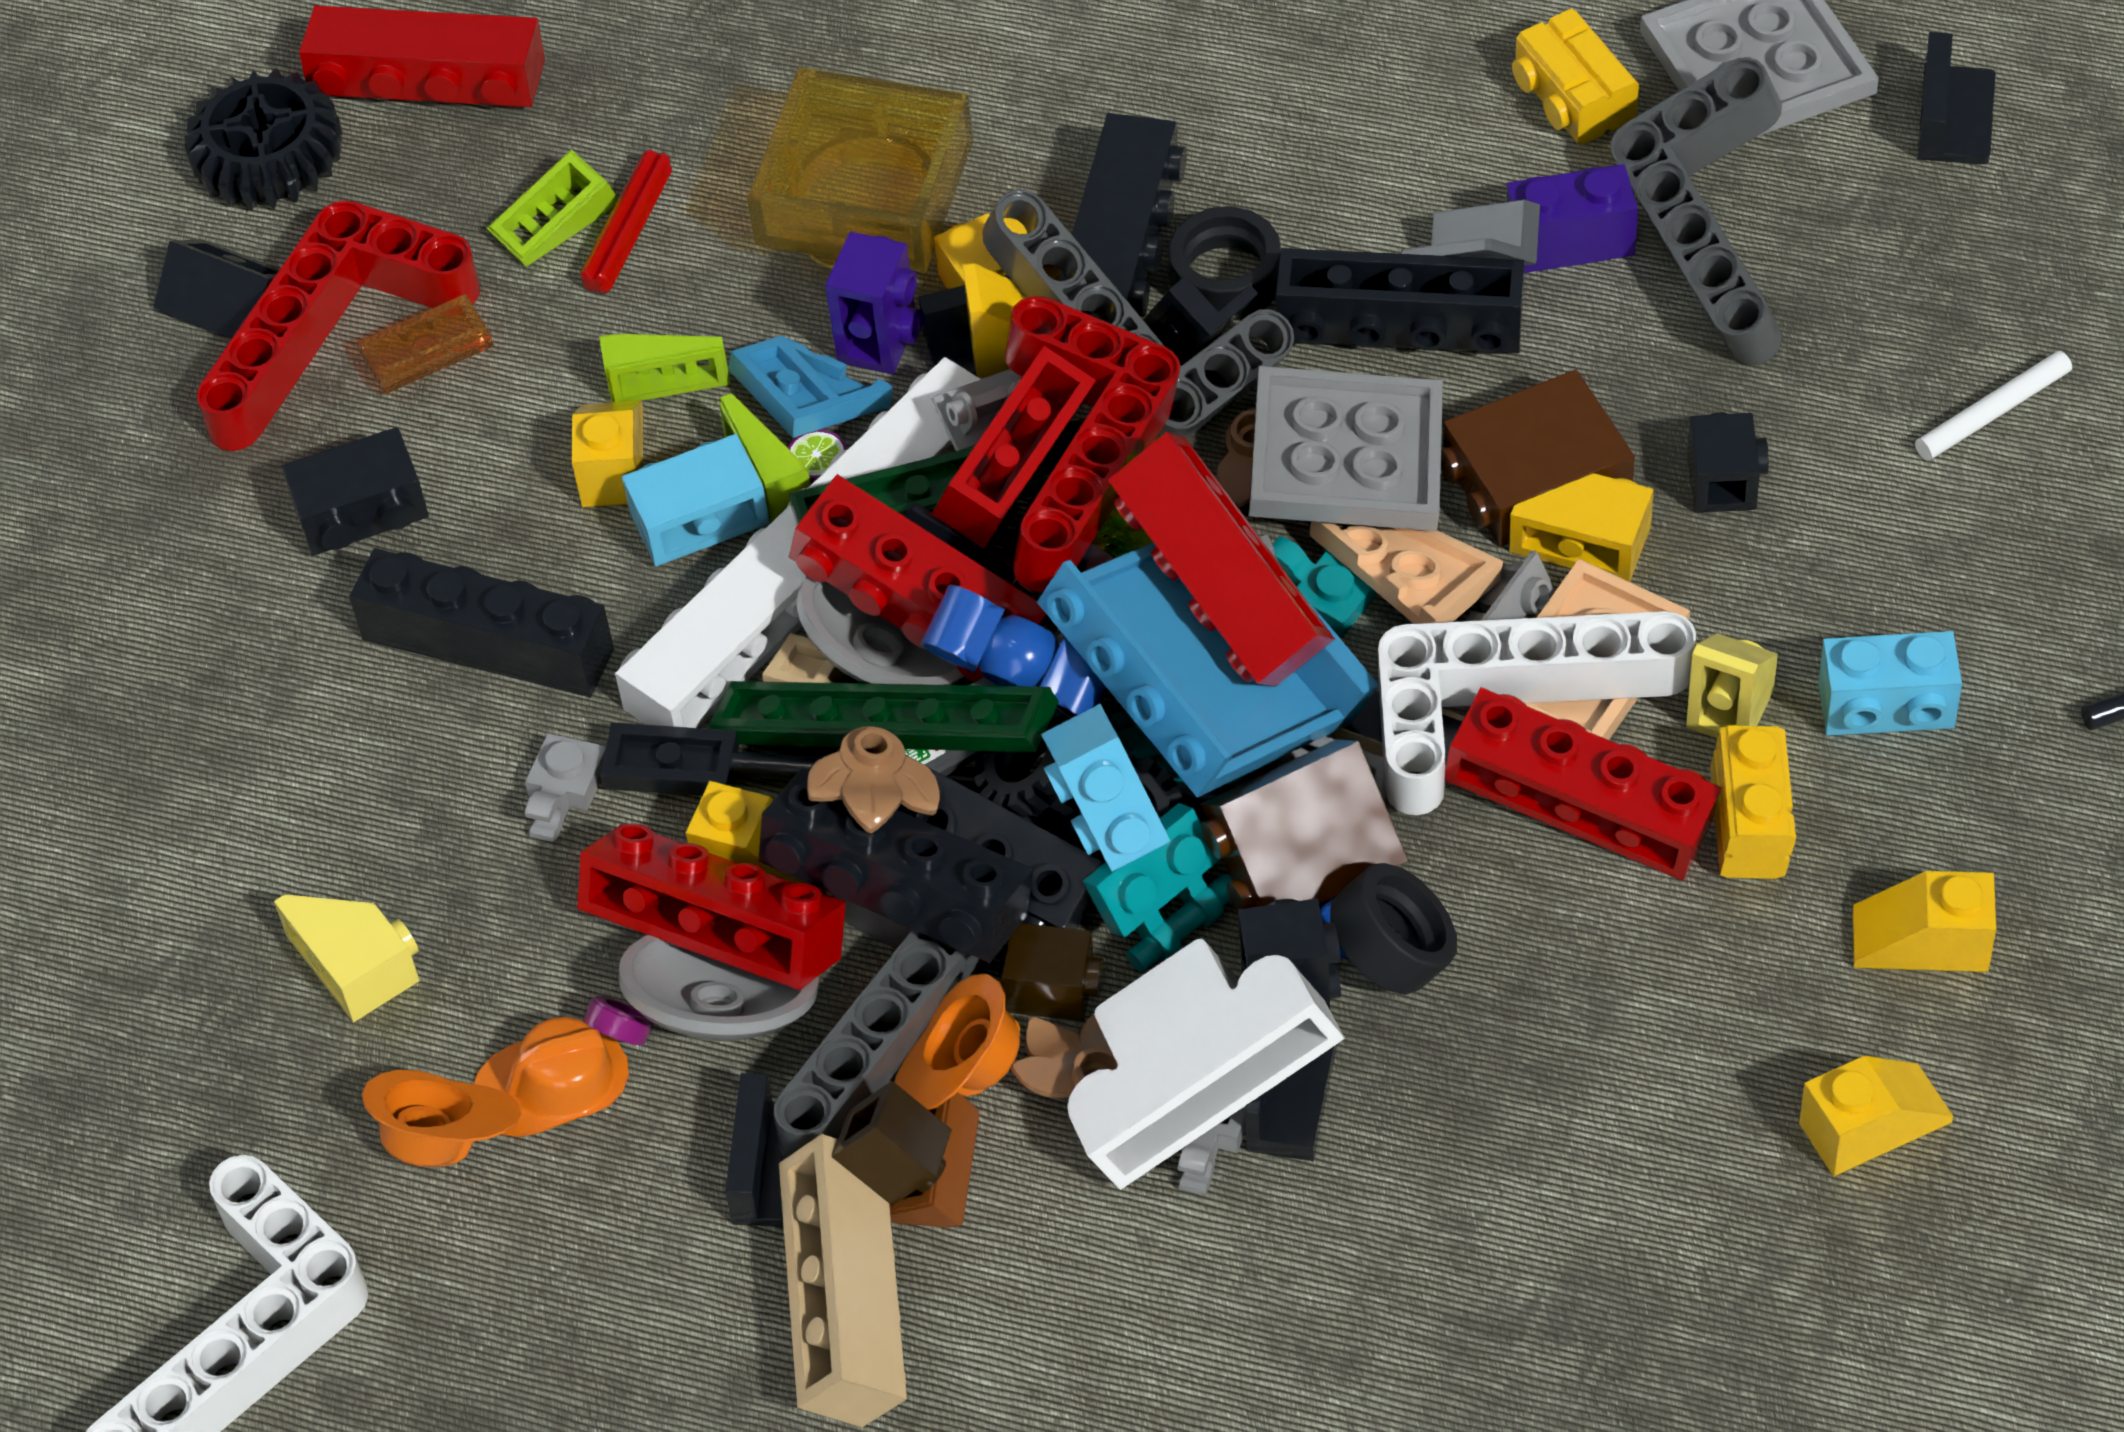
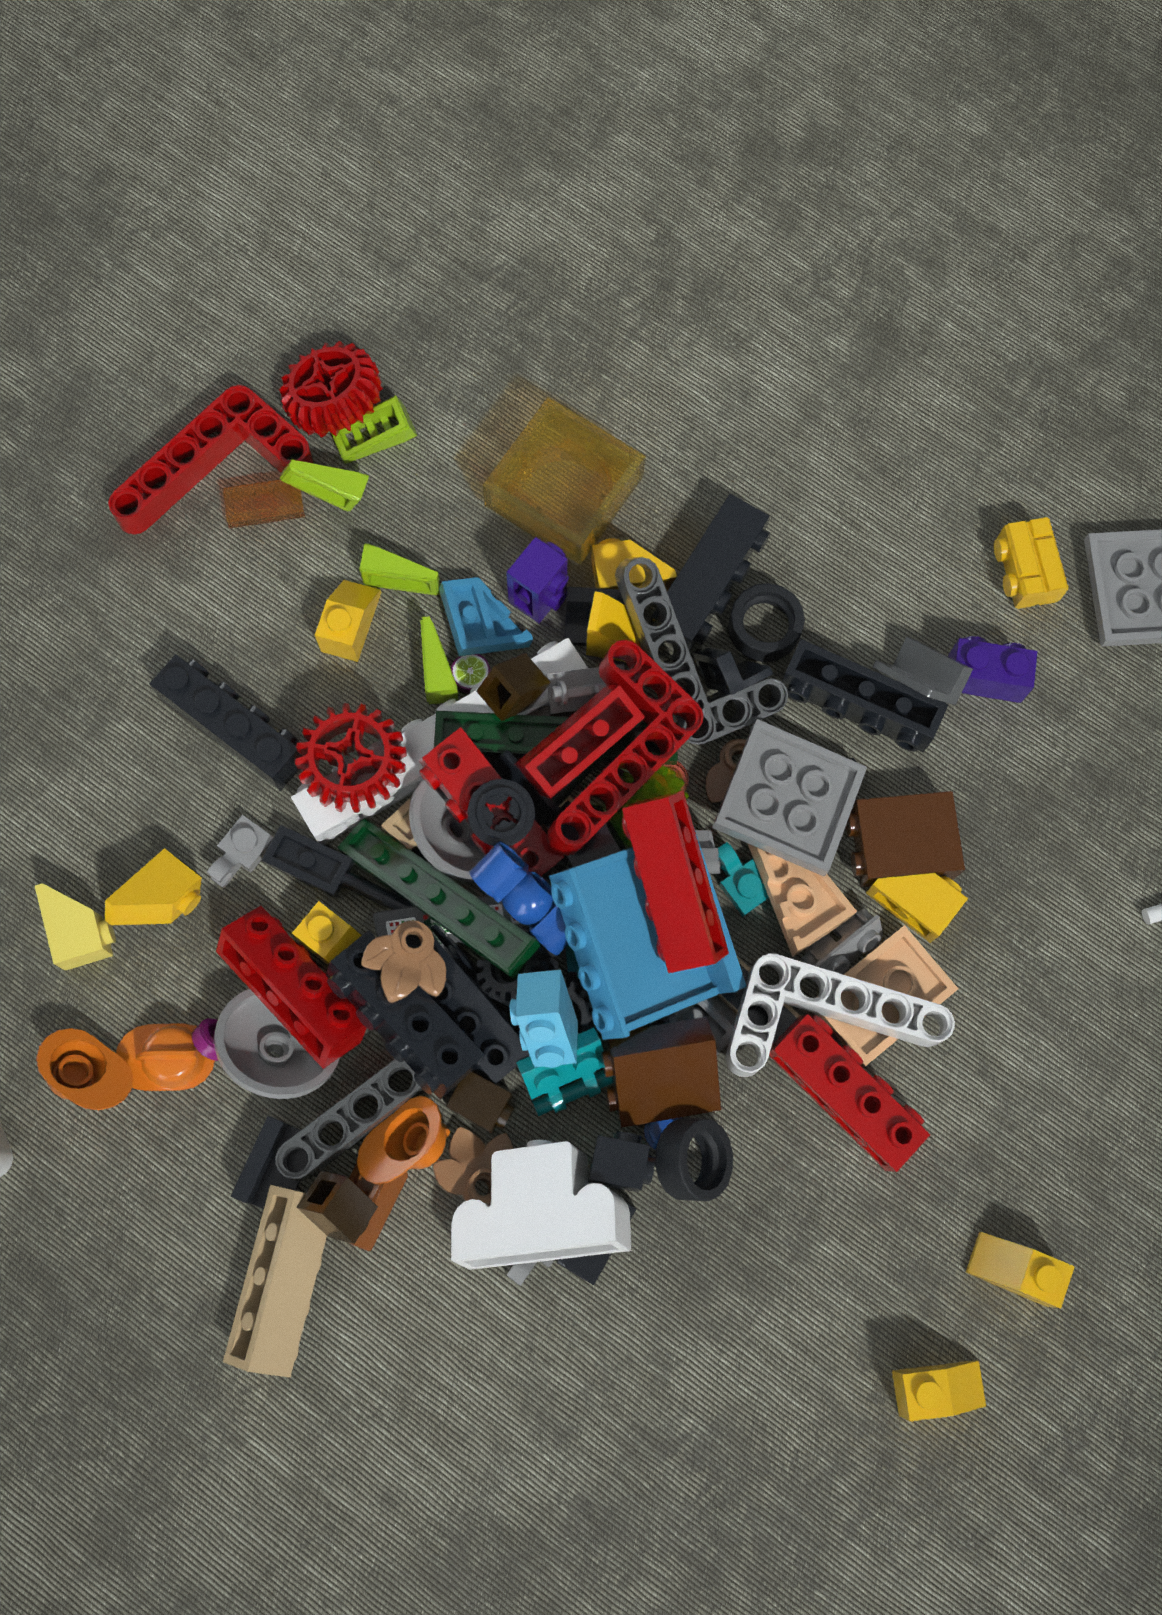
camera: 10 degrees right, 20 degrees up
(211, 285) = (153, 411): black panel -> none
(263, 139) = (226, 327): black gear -> none
(355, 491) = (183, 601): black brick -> none
(423, 55) = (329, 291): red brick -> none
(459, 860) = (155, 893): none -> yellow slope
(473, 169) = (330, 389): none -> red gear
(522, 285) = (329, 484): none -> lime slope
(626, 221) = (415, 455): red axle -> none
(649, 584) = (320, 748): none -> red gear
(696, 499) = (384, 680): medium azure brick -> none
(891, 422) = (513, 686): none -> dark brown brick
(918, 537) = (520, 807): none -> black gear
(1679, 149) = (1065, 695): dark grey beam -> none
(1725, 462) = (1020, 884): black brick -> none
(1729, 684) = (965, 1055): light yellow slope -> none
(1755, 802) = (951, 1143): yellow brick -> none
(1889, 683) = (1062, 1089): medium azure brick -> none

